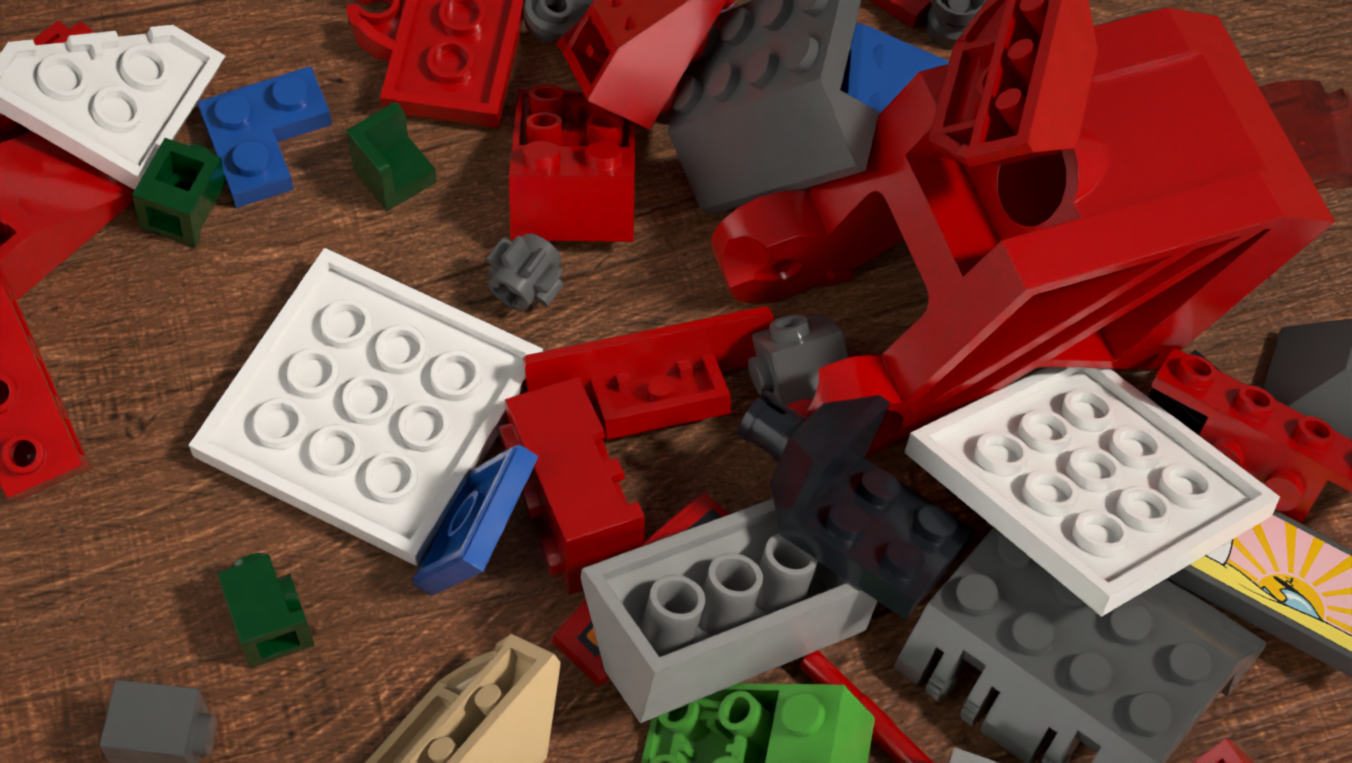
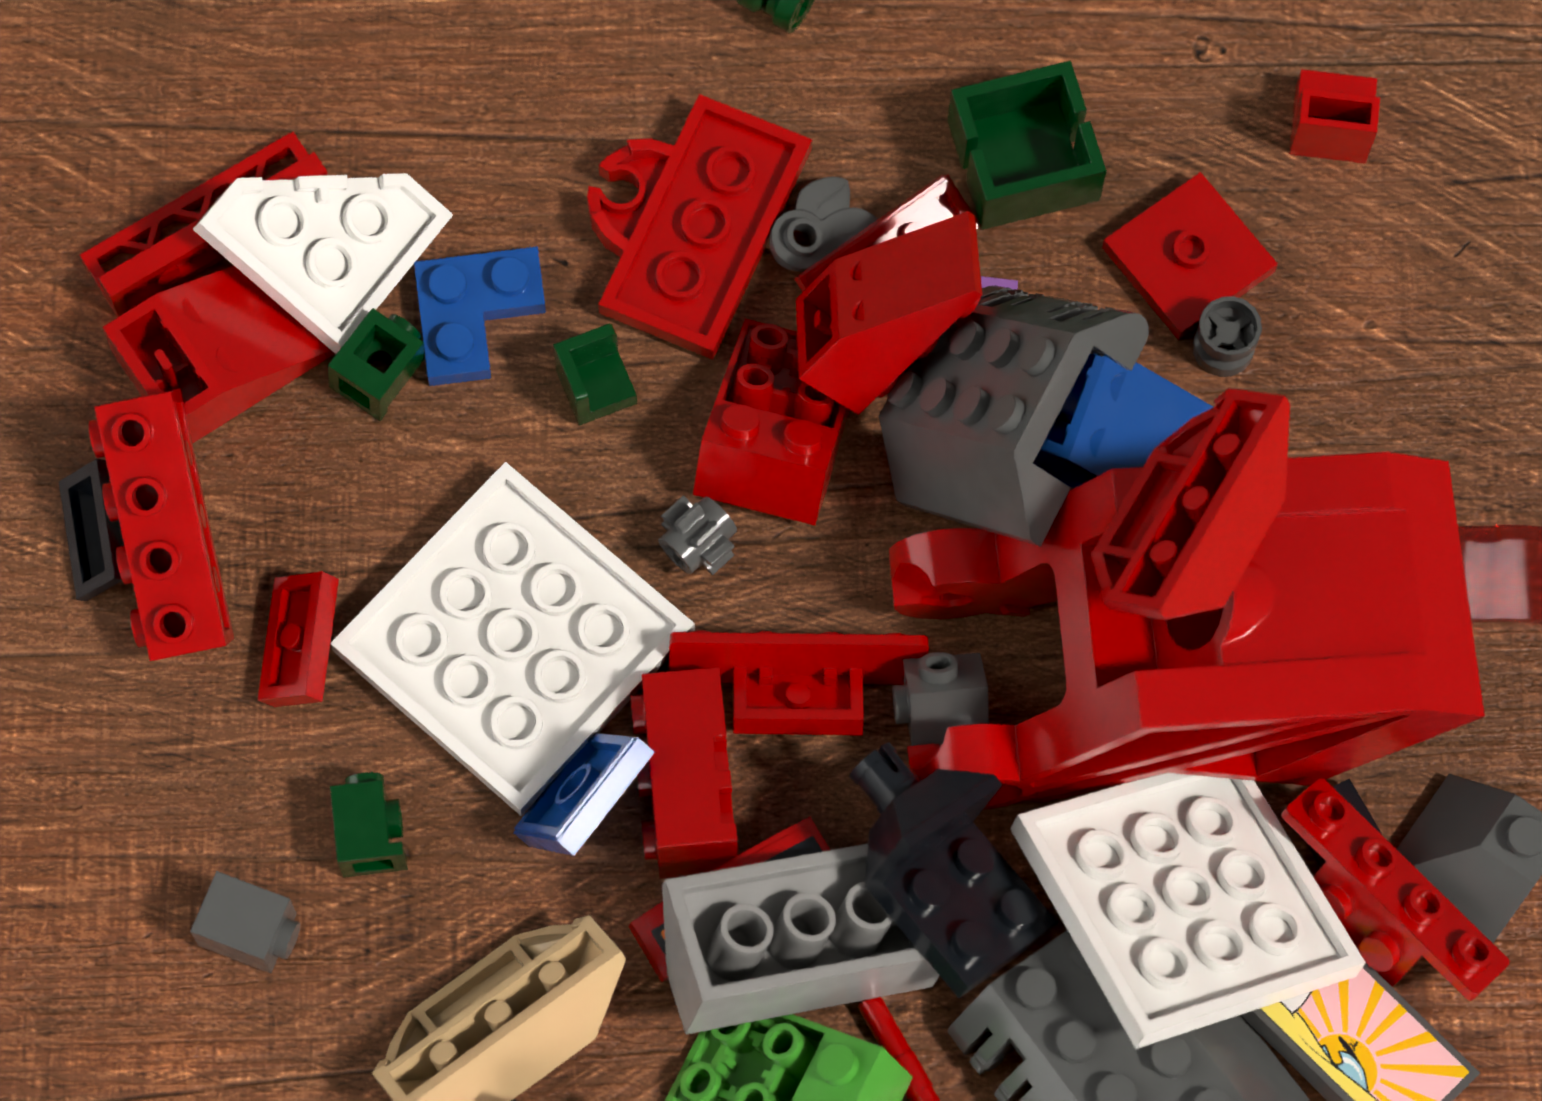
camera: 15 degrees right, 10 degrees up
(155, 450) = (298, 639): none -> red plate

